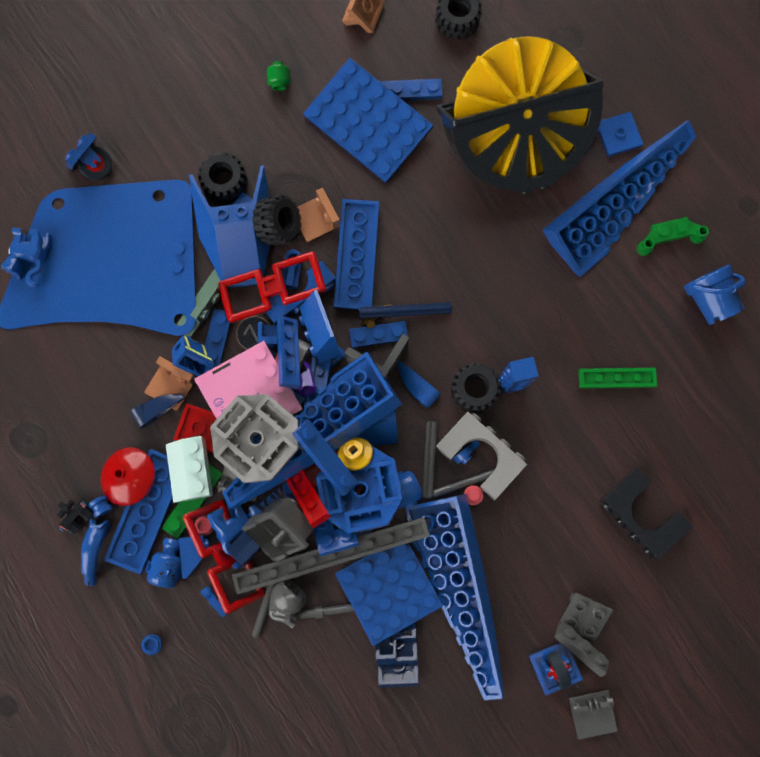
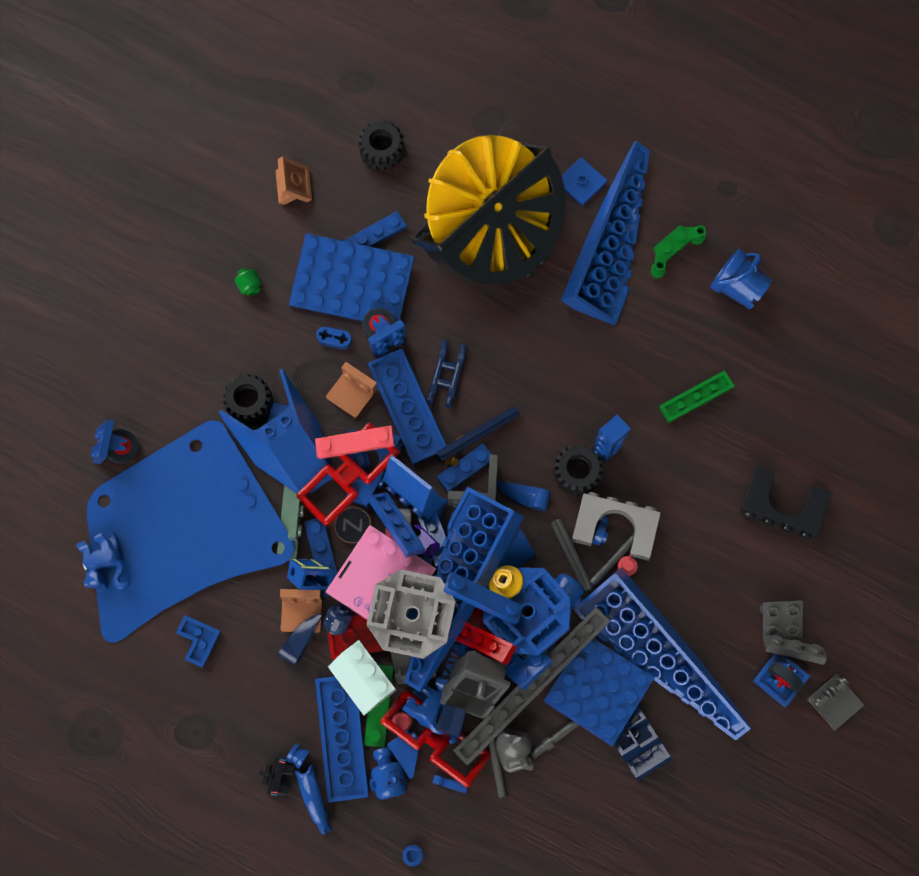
camera: 25 degrees left, 5 degrees down
(76, 363) = (203, 640): none -> blue plate
(135, 480) = (318, 717): red dish -> none
(194, 408) = (337, 619): none -> dark blue head
(268, 334) = (368, 517): blue panel -> none
(276, 220) = (320, 411): black tyre -> none
(291, 262) = (355, 442): none -> coral plate
(323, 165) = (333, 342): none -> blue beam
(370, 177) = (382, 331): none -> blue plate
(406, 233) = (457, 368): none -> dark blue piece

